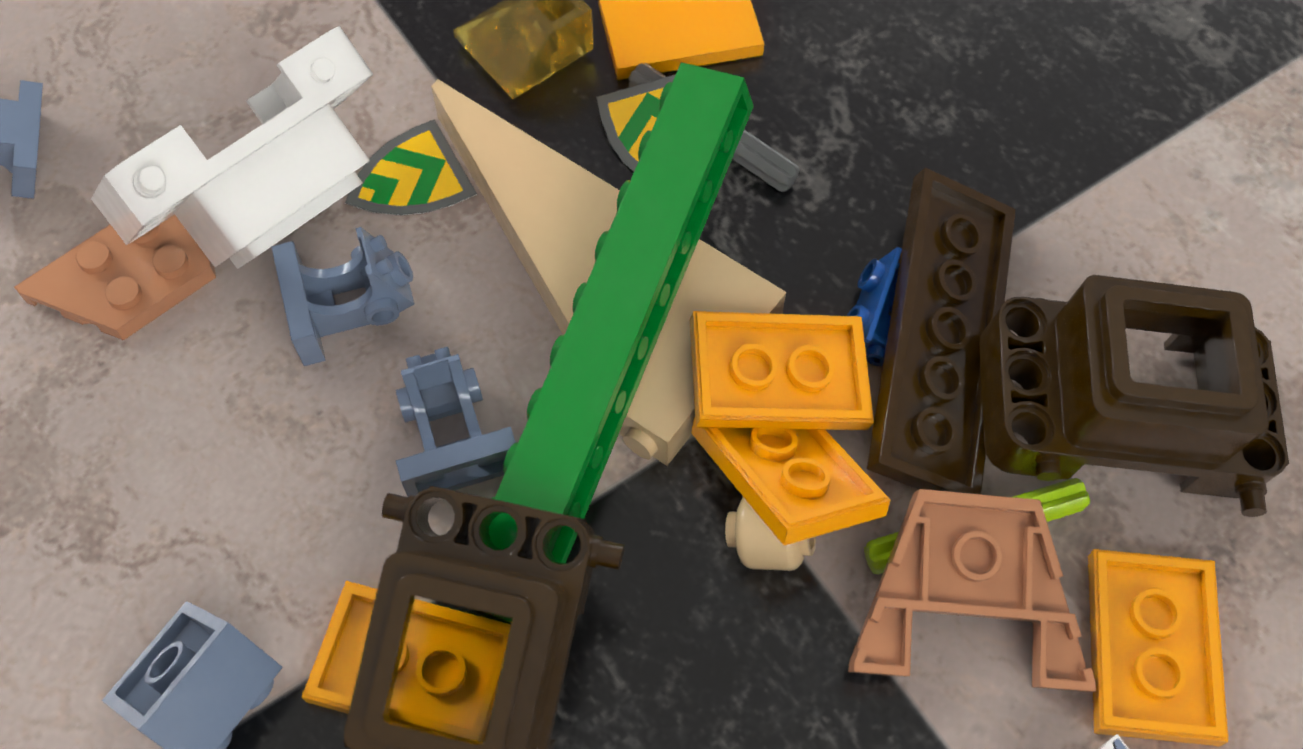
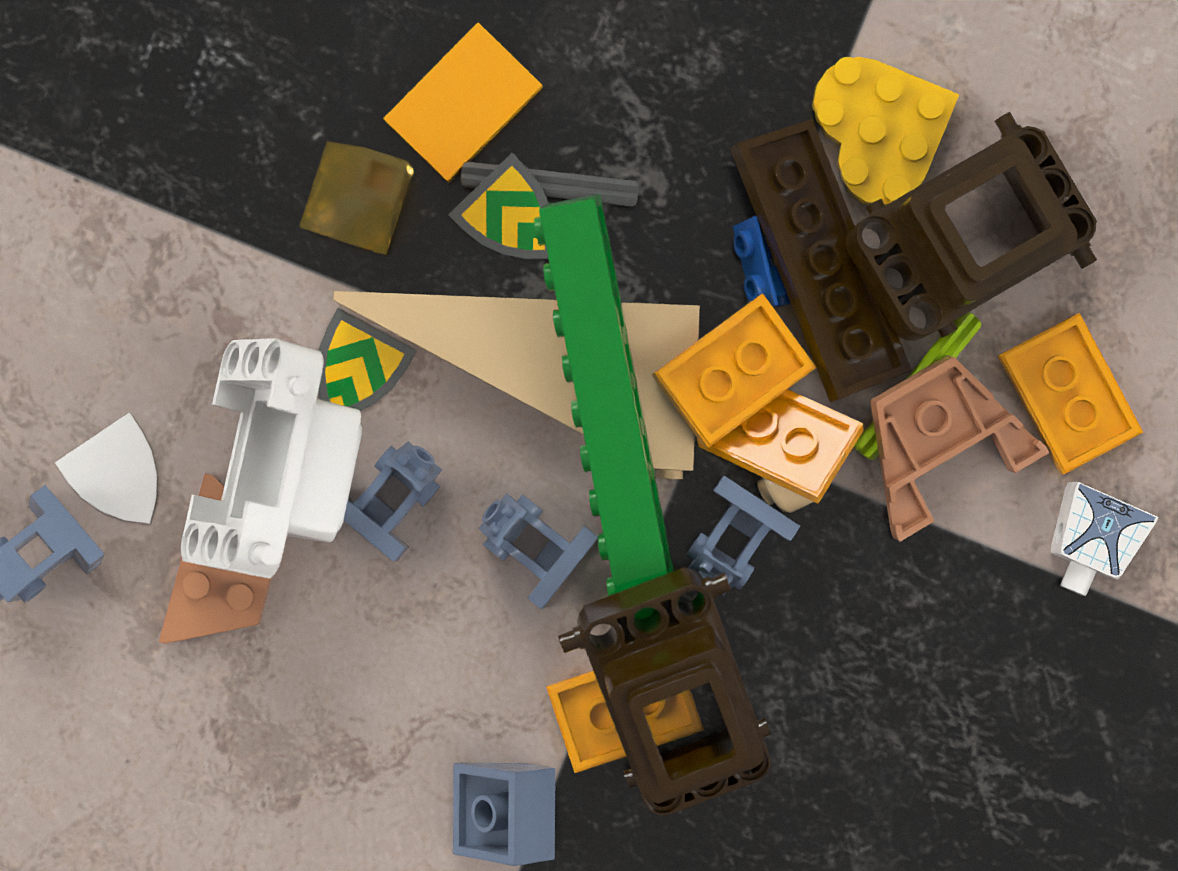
camera: 30 degrees left, 25 degrees up
(116, 126) = (115, 471): none -> white sticker
(697, 542) = (748, 516): none -> sand blue tile
(1081, 231) = (883, 124): none -> yellow plate

